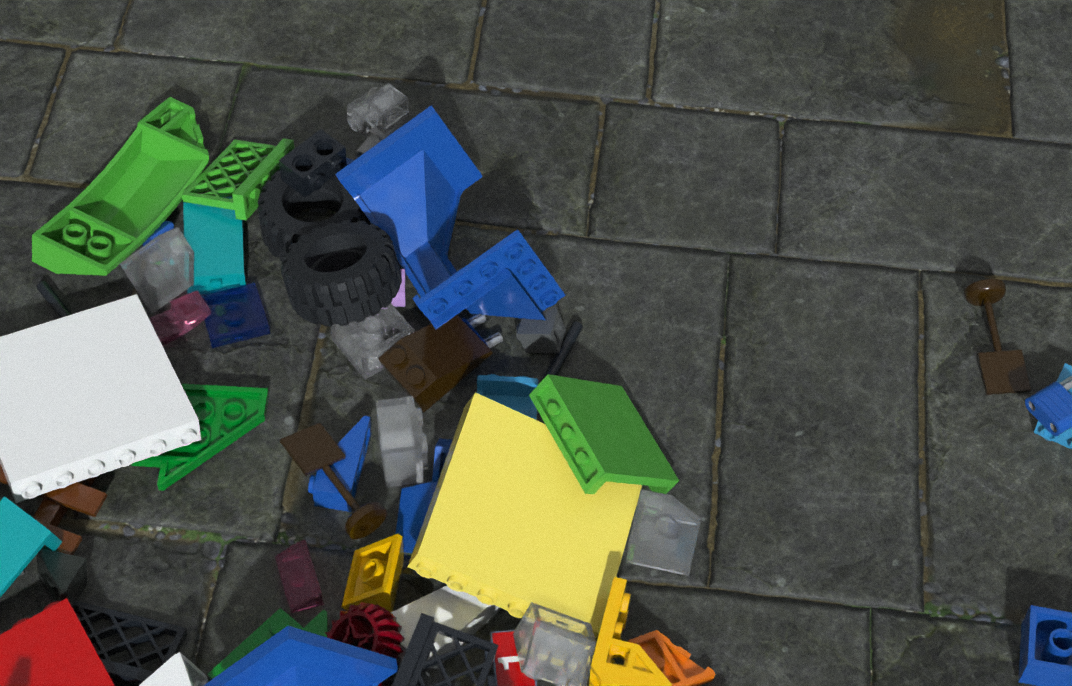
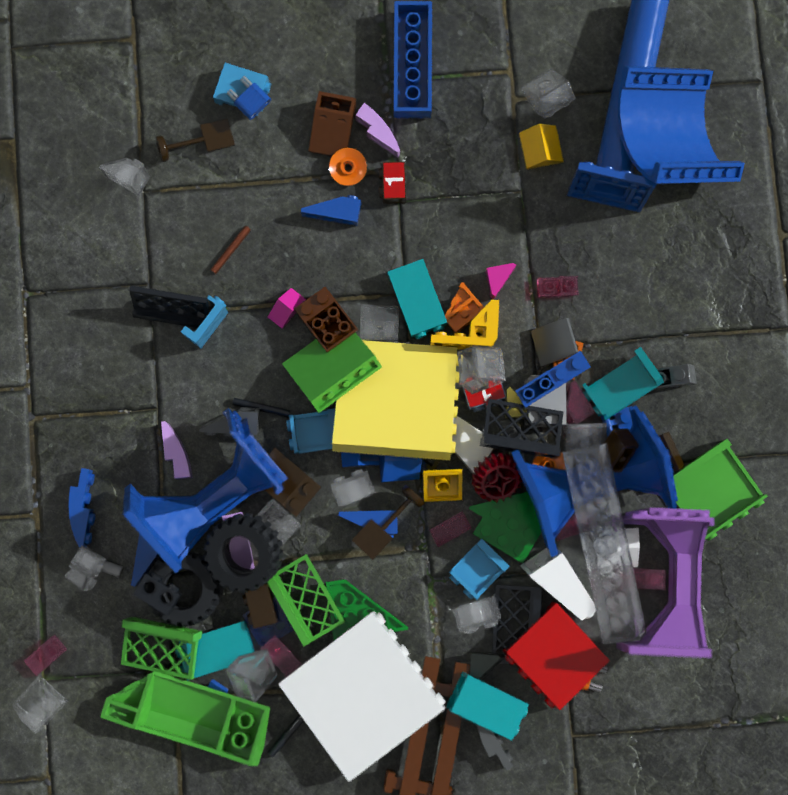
camera: 100 degrees left, 30 degrees up
(144, 576) = (477, 614): none -> clear brick
(210, 48) = (38, 704): none -> clear slope
(217, 604) = (478, 569): none -> dark azure panel
(243, 338) = (290, 608): none -> bright green fence
(257, 298) = (260, 607): none -> dark brown brick
(274, 65) = (45, 655): none -> clear pink slope
(476, 126) = (80, 516): none -> blue slope
(539, 235) = (175, 452): none -> lavender slope
(684, 450) = (326, 319): none -> reddish brown slope
(695, 592) = (417, 299): none -> teal panel
(701, 302) = (209, 324): none -> dark azure panel
(713, 414) = (284, 307): none -> dark pink slope
(730, 263) = (174, 312): none -> black fence
(816, 359) = (231, 248): none -> copper bar
(864, 509) = (339, 210): none -> blue slope
(904, 598) = (393, 182): none -> red brick
(939, 523) = (344, 157): none -> orange dish
(944, 241) = (127, 174): none -> clear slope
(1000, 591) = (377, 129): none -> lavender slope
(1013, 523) = (332, 123): none -> reddish brown slope

